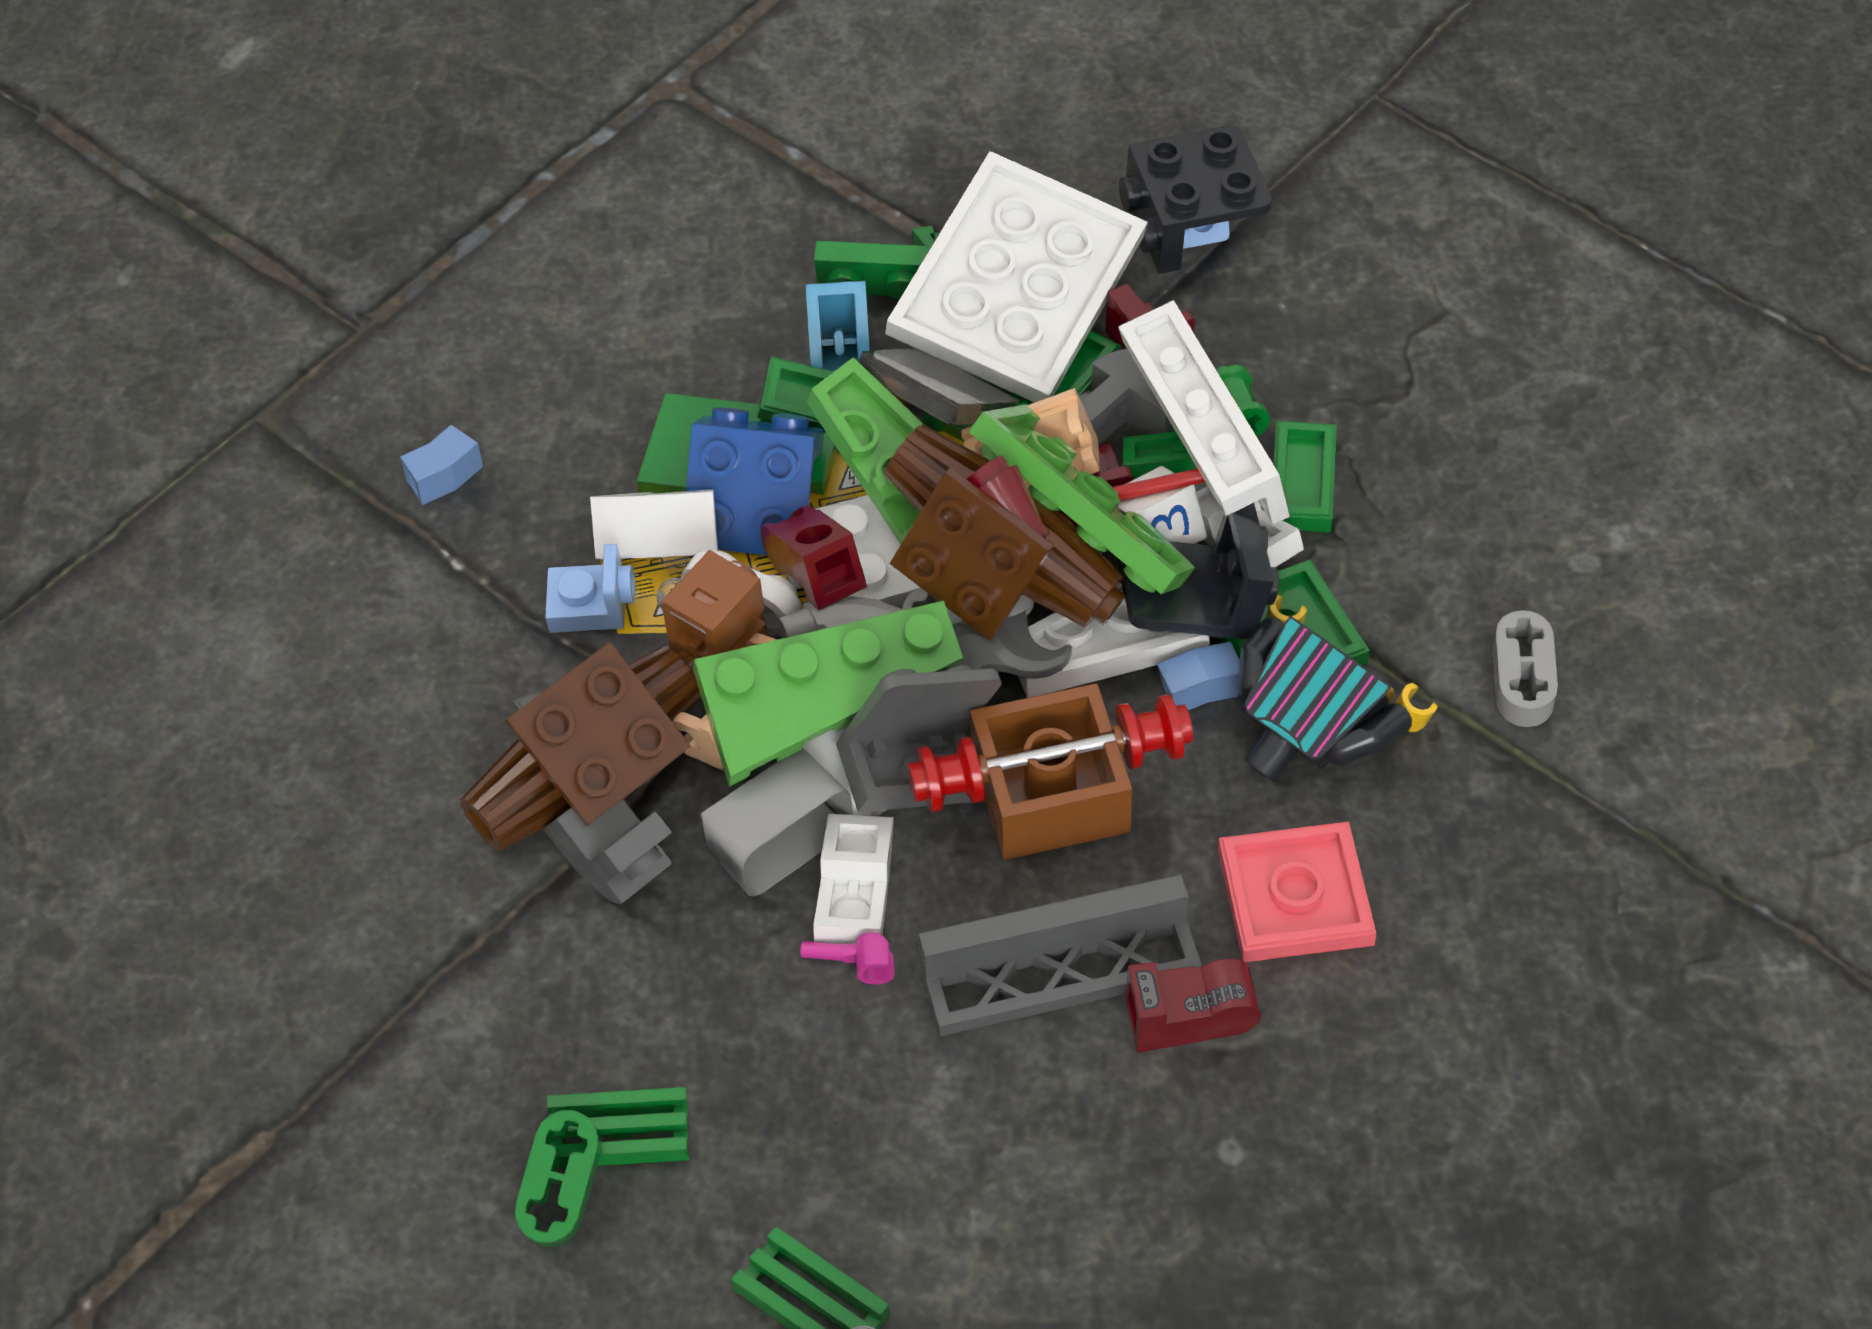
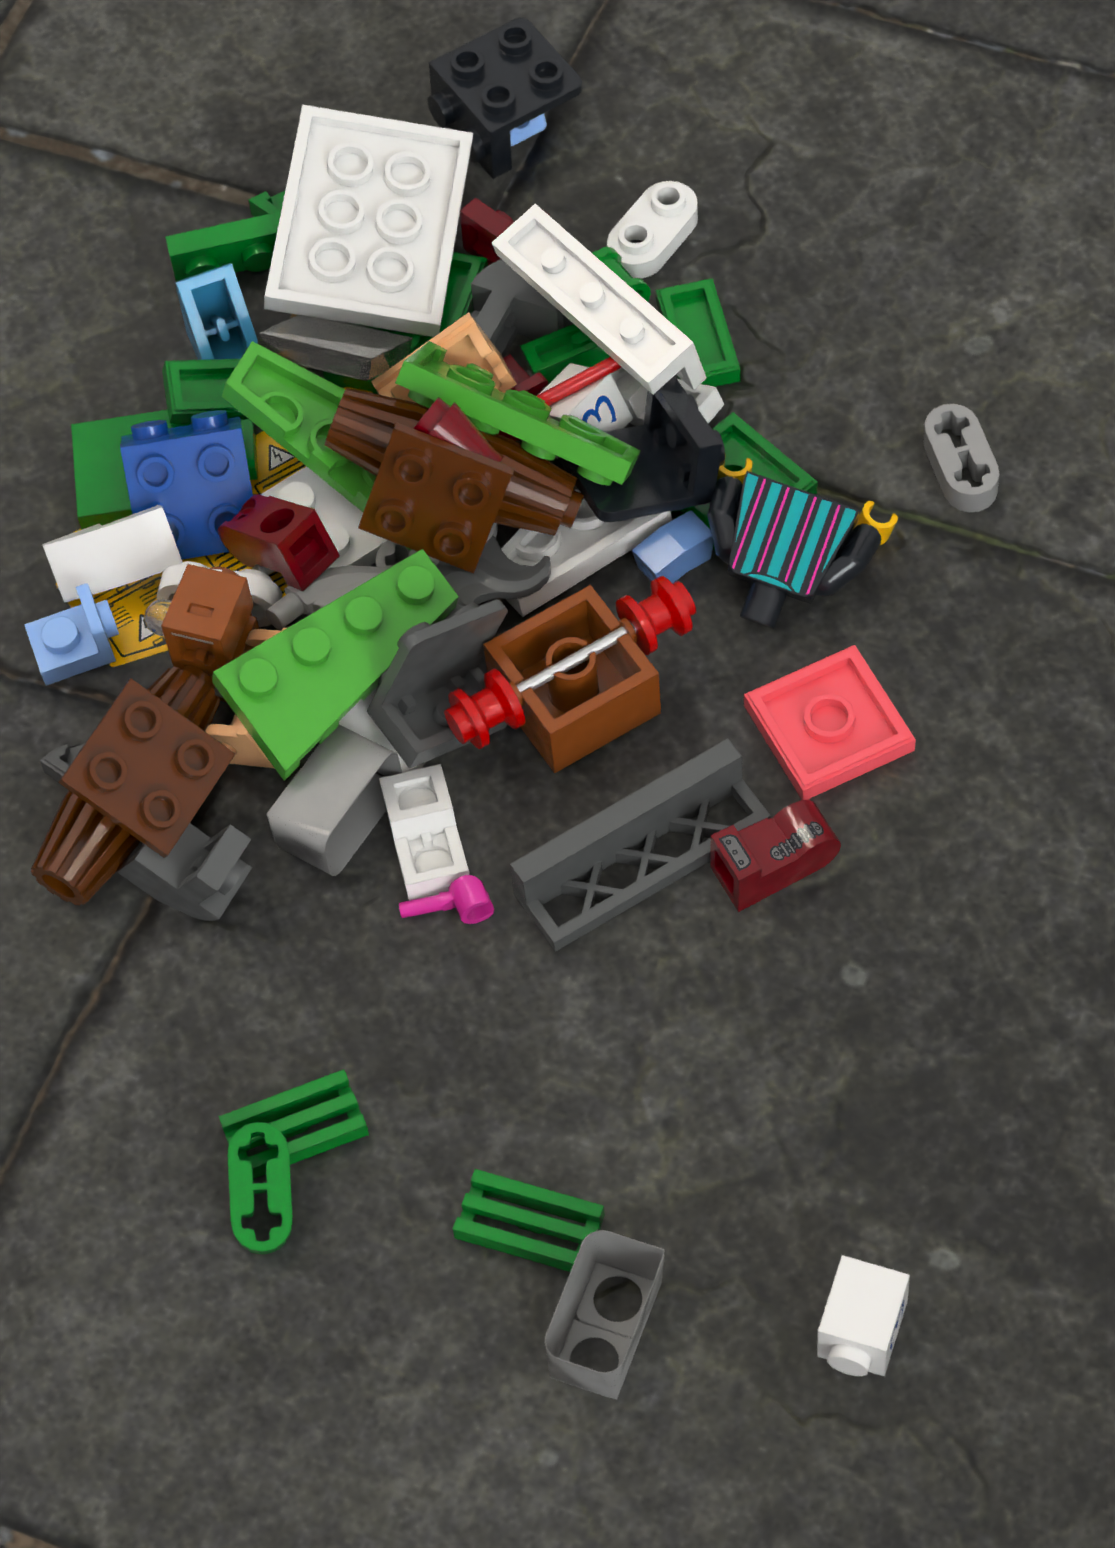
camera: 15 degrees left, 5 degrees up
(1305, 357) = (661, 221): none -> white plate

